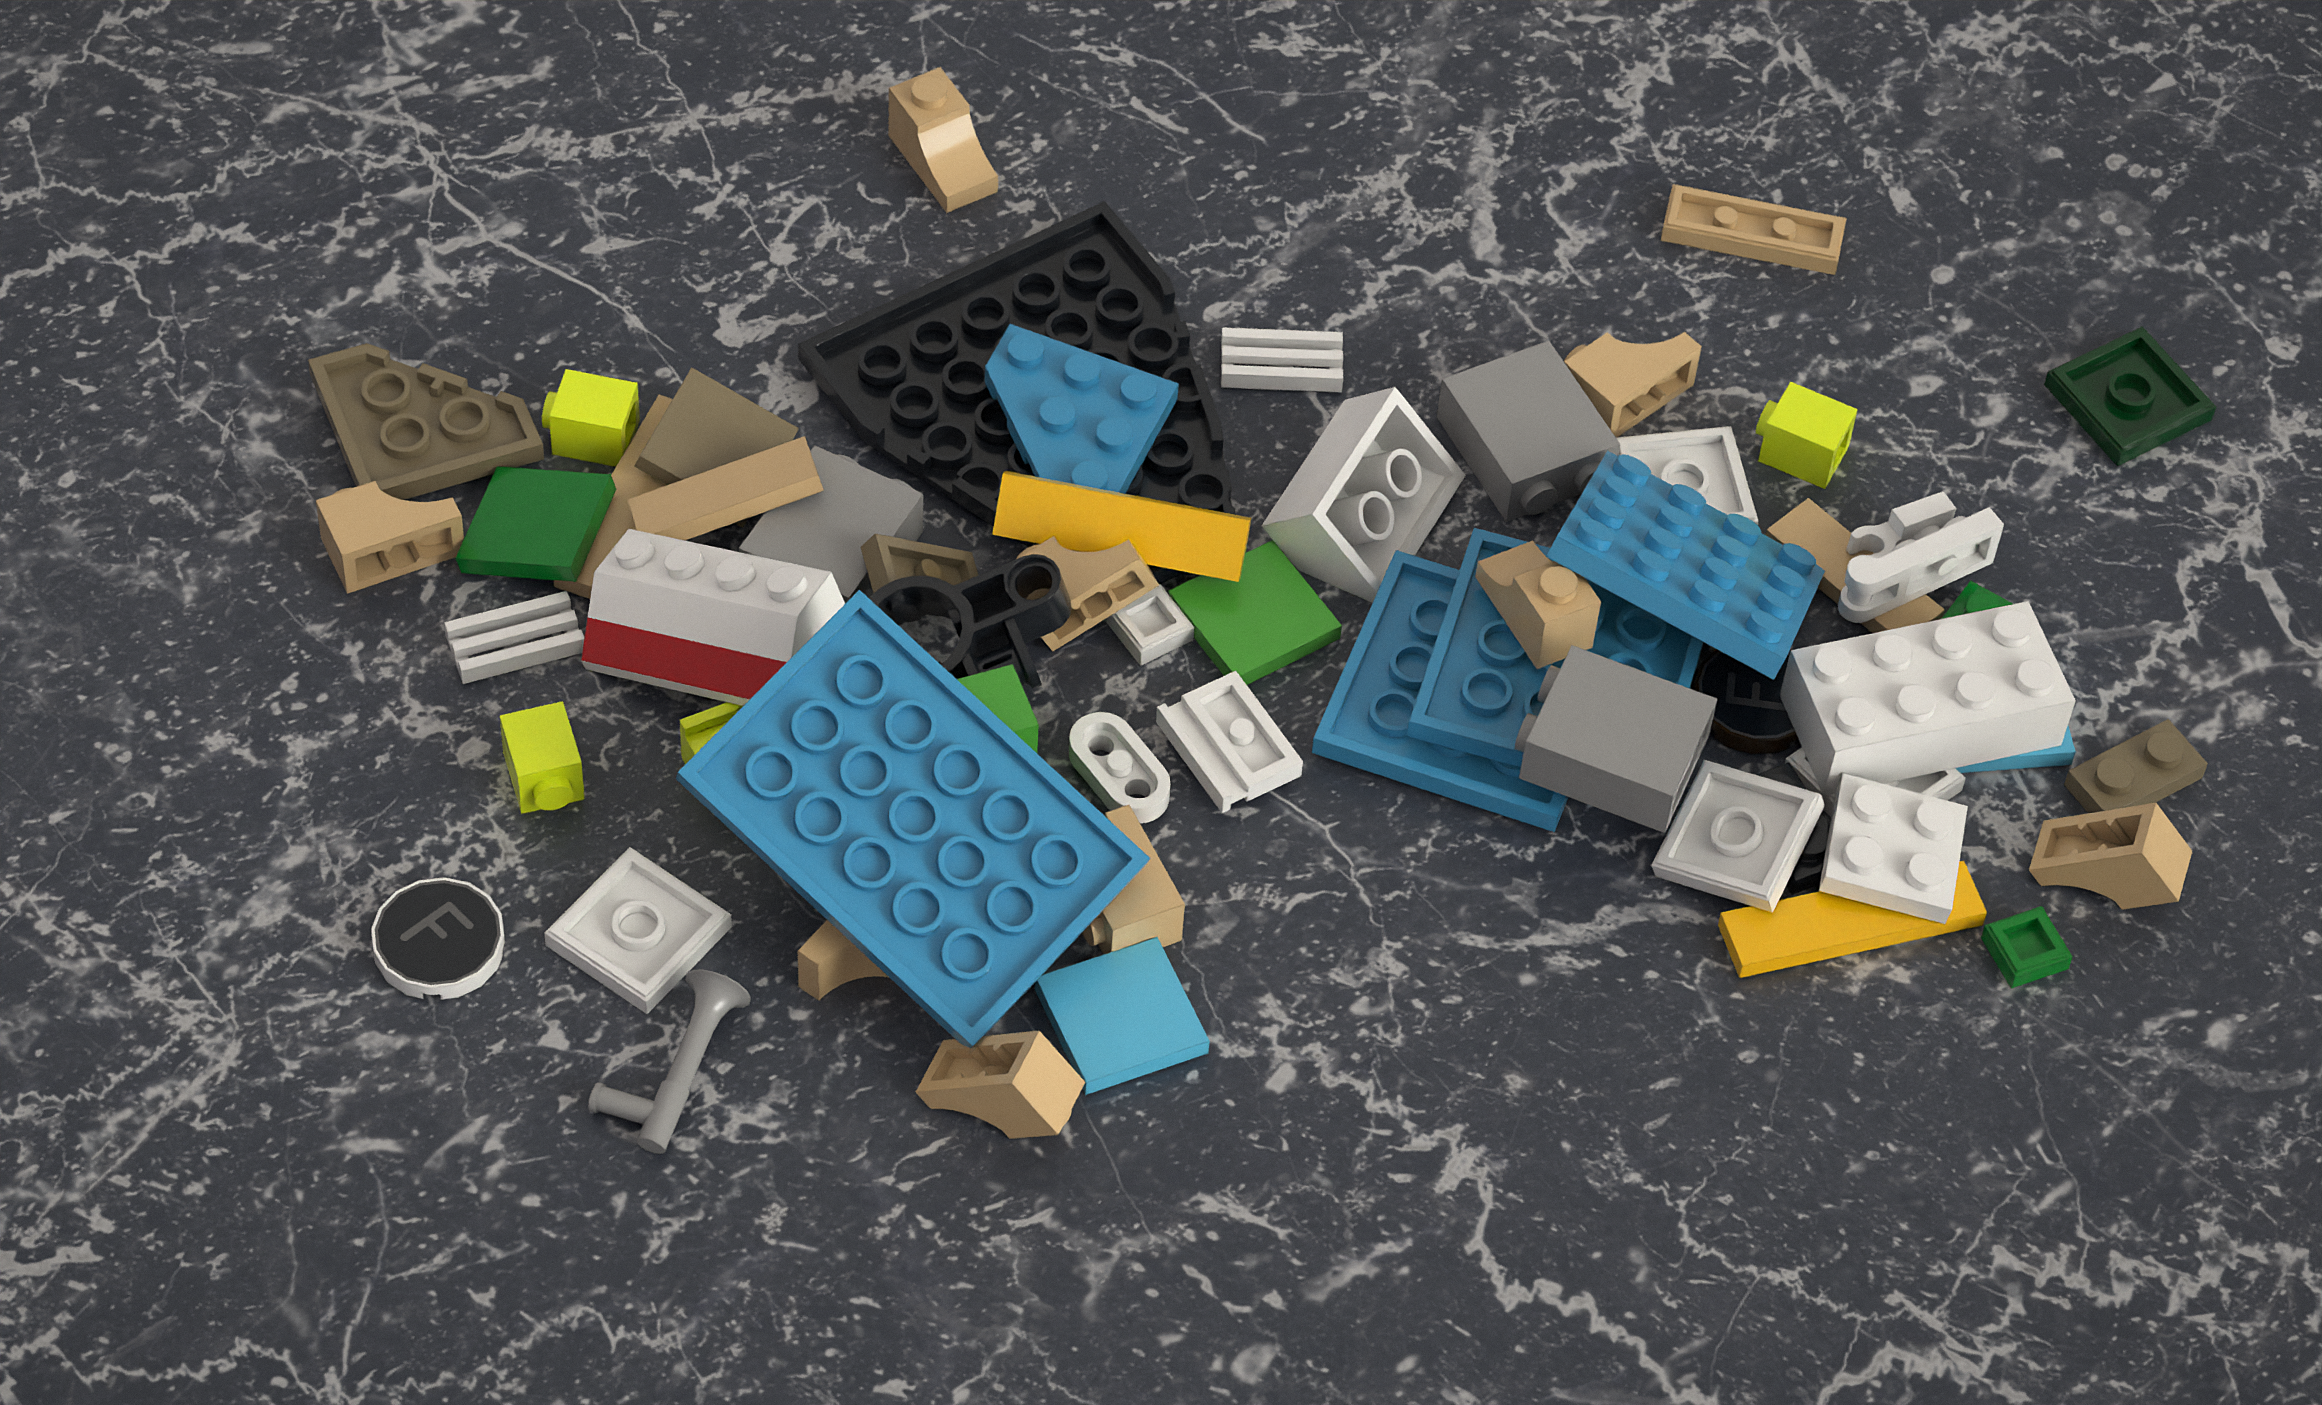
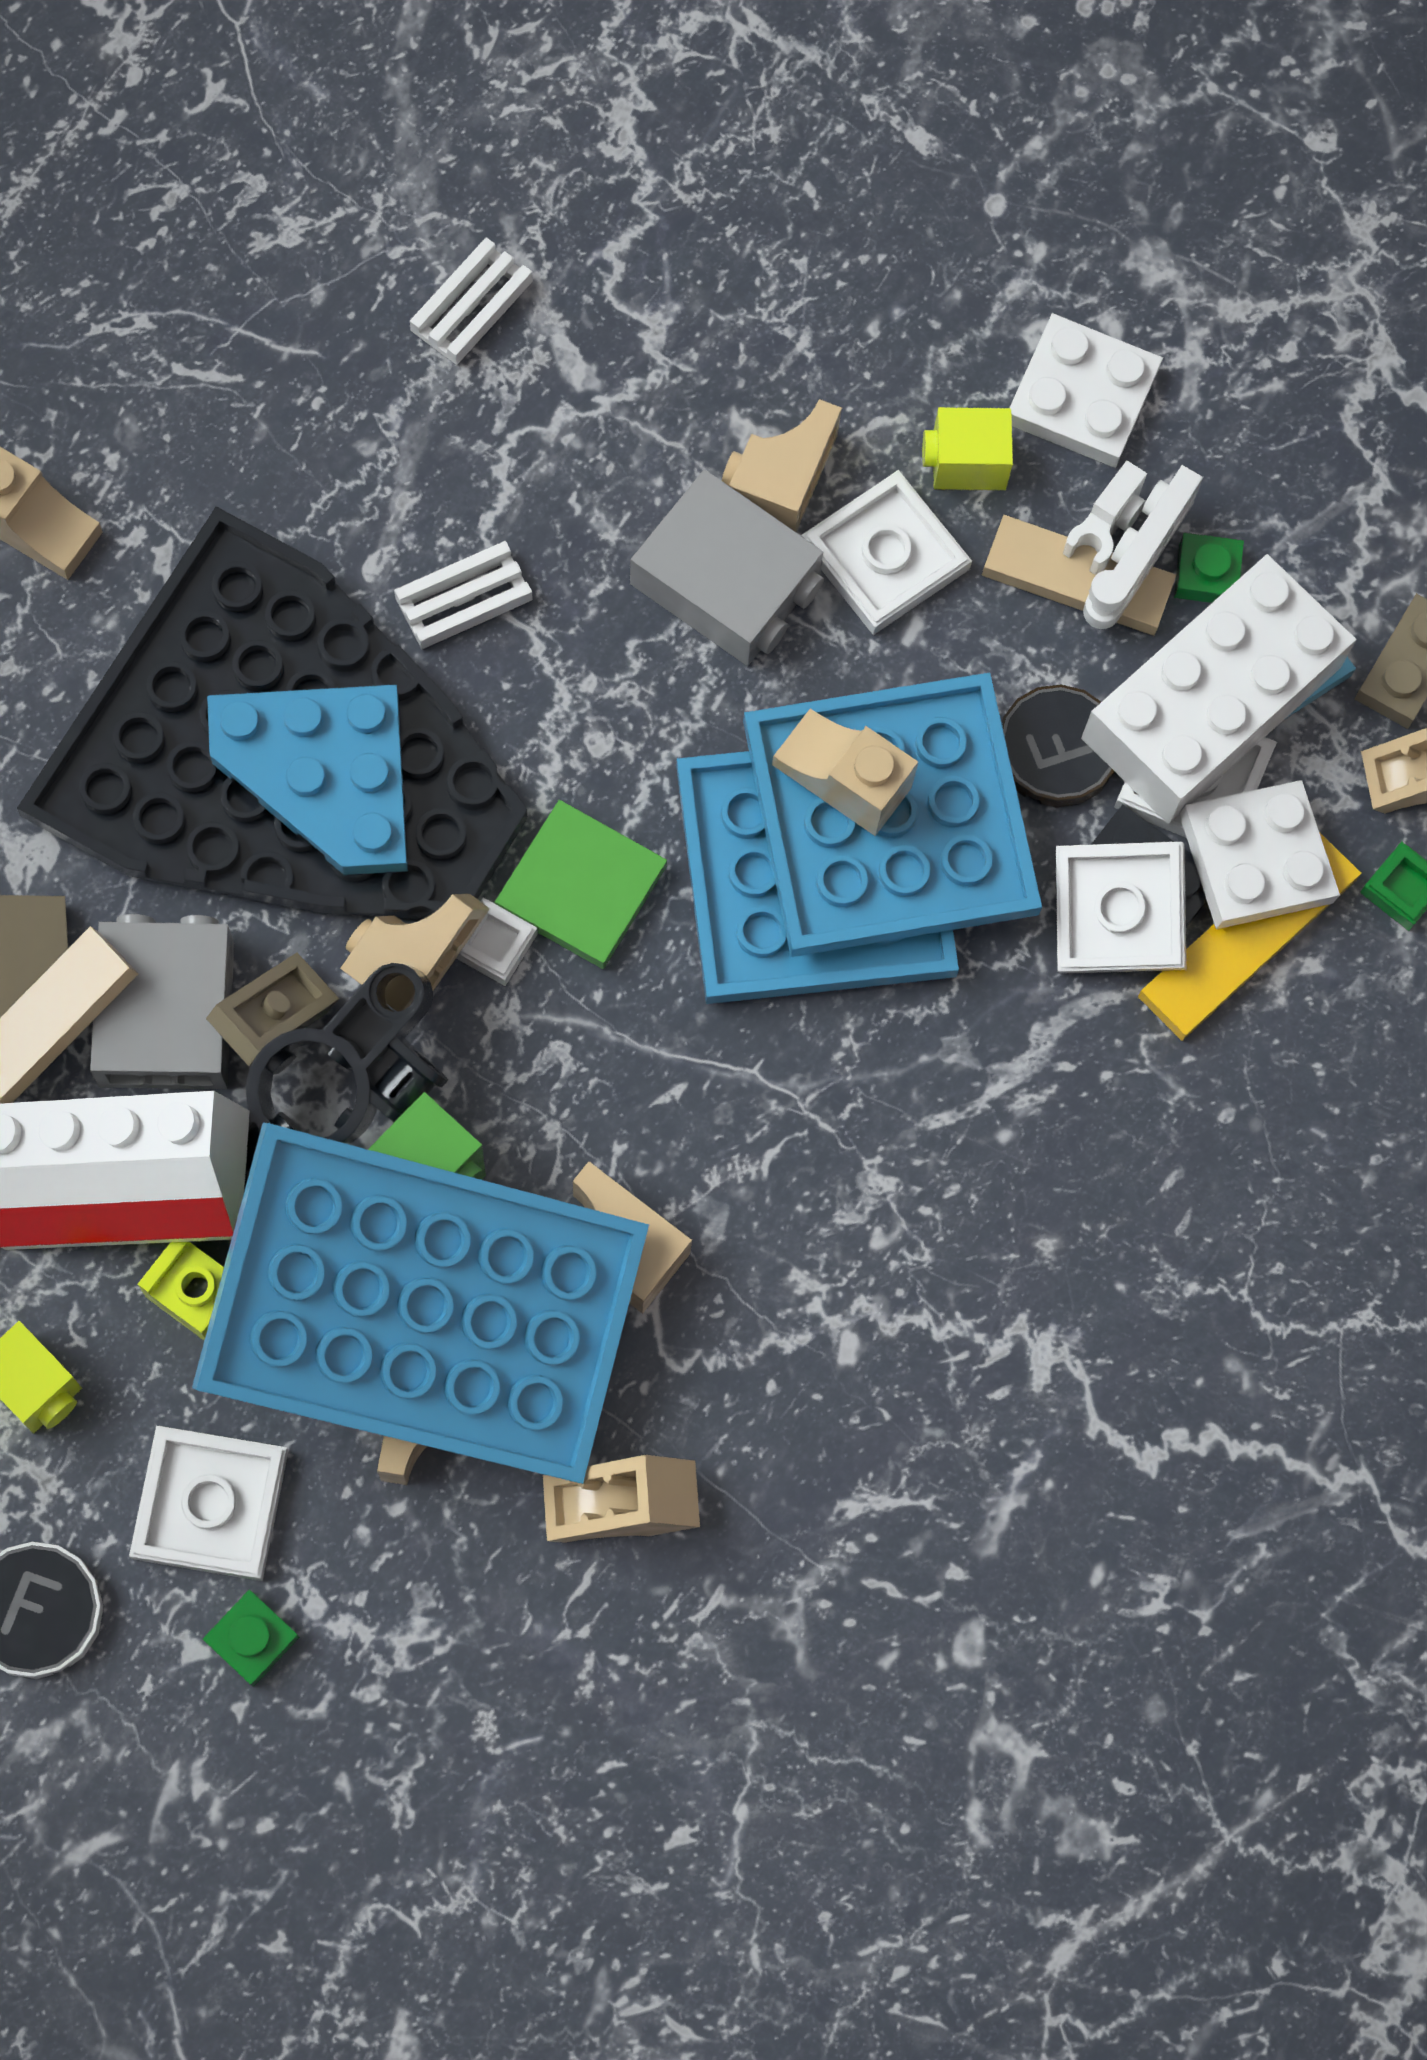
camera: 30 degrees left, 20 degrees up
(609, 1046) = (251, 1638): none -> green plate
(713, 999) = (337, 1680): light grey piece -> none
(1099, 519) = (427, 869): yellow tile -> none
(1122, 1015) = (685, 1364): medium azure tile -> none
(1123, 772) = (553, 1109): white plate -> none
(1229, 741) = (631, 1034): white plate -> none
(1364, 493) = (616, 711): white slope -> none
(1416, 145) = (501, 265): none -> white tile
(1615, 737) = (988, 884): light grey brick -> none
(1689, 562) = (955, 662): dark azure plate -> none
(1753, 229) = (809, 240): tan tile -> none
(1941, 438) = (1084, 390): none -> white plate
(2129, 396) = (1220, 260): dark green tile -> none

